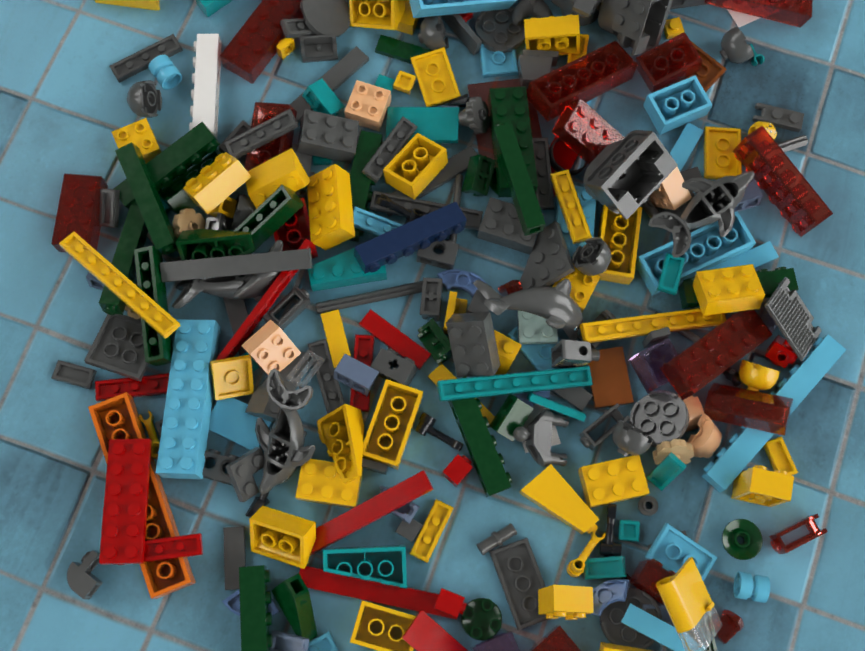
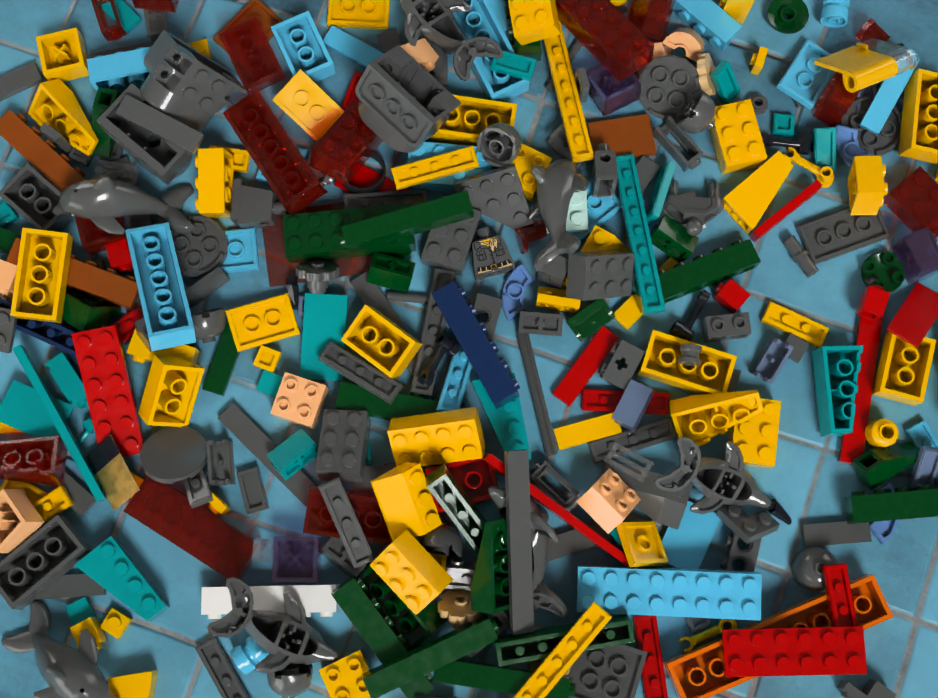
camera: 85 degrees left, 5 degrees up
(173, 90) = (282, 635): none -> dark grey animal
(211, 532) = (808, 567): none -> dark grey cylinder
(235, 102) = (296, 559): none -> clear purple brick
(244, 79) = (262, 550): none -> clear tile
(282, 536) = (814, 479): yellow slope -> none
(296, 74) = (252, 490): none -> dark grey tile
(324, 604) = (881, 433): none -> yellow head
(371, 510) = (792, 398): red tile -> none
(397, 420) = (690, 354): none -> dark grey wheel
(428, 460) = (726, 327): none -> dark grey brick
(494, 258) = (490, 255): none -> dark grey torso
(541, 526) = (785, 211): none -> red tile
(627, 106) = (308, 105): none -> yellow tile
(692, 507) = (757, 60): none -> yellow plate

